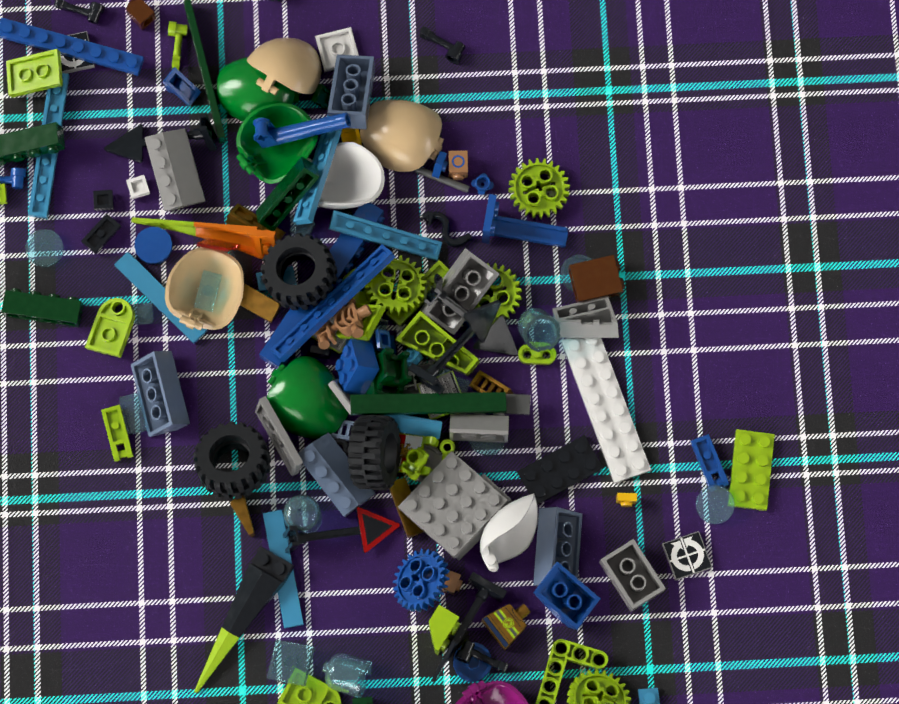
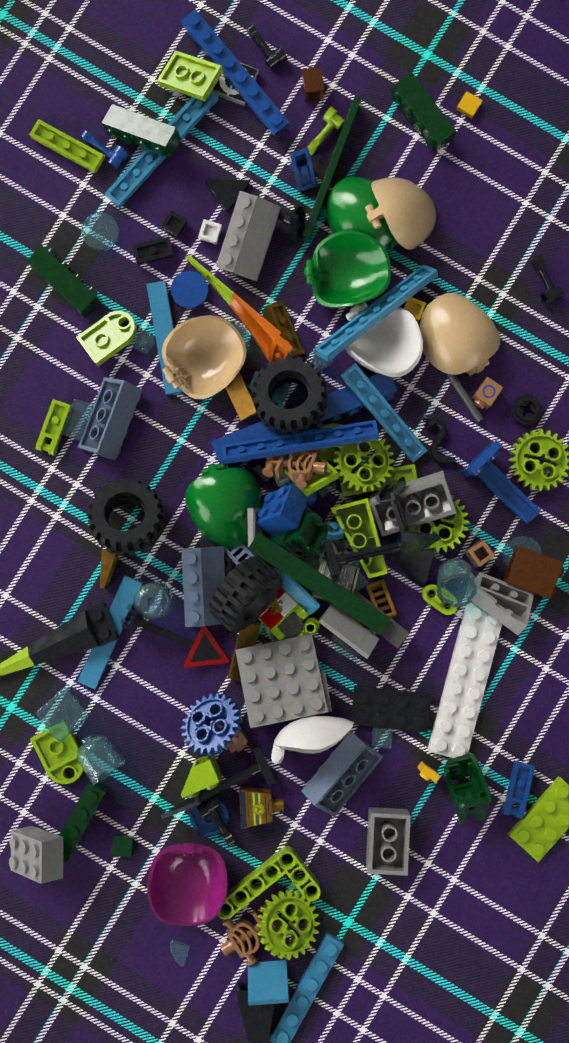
camera: 35 degrees right, 10 degrees up
(207, 291) = (204, 359): clear light blue plate -> none
(218, 245) = (240, 326): clear red piece -> none
(268, 135) = (346, 261): blue axle -> none
(278, 436) = (179, 522): light grey tile -> none
(287, 194) = (326, 321): dark green brick -> none
(321, 96) = (414, 258): dark green tile -> none
(335, 43) = (455, 226): white tile -> none
(352, 88) = (442, 269): sand blue slope -> none
(384, 340) = (321, 504): blue slope -> none
(415, 460) = (274, 622): lime plate -> none
(440, 165) = (471, 384): blue plate -> none
(482, 179) = (499, 419): blue plate -> none
(492, 151) = (534, 406): none -> black gear
(542, 295) = (479, 553): none -> medium nougat brick
(566, 596) = (321, 825): blue slope -> none
(569, 498) = (381, 737): none -> clear light blue tile
(673, 490) = (470, 796): none -> dark green piece
(687, 555) = (444, 852): tile -> none
(715, 504) = (499, 829): clear light blue tile -> none

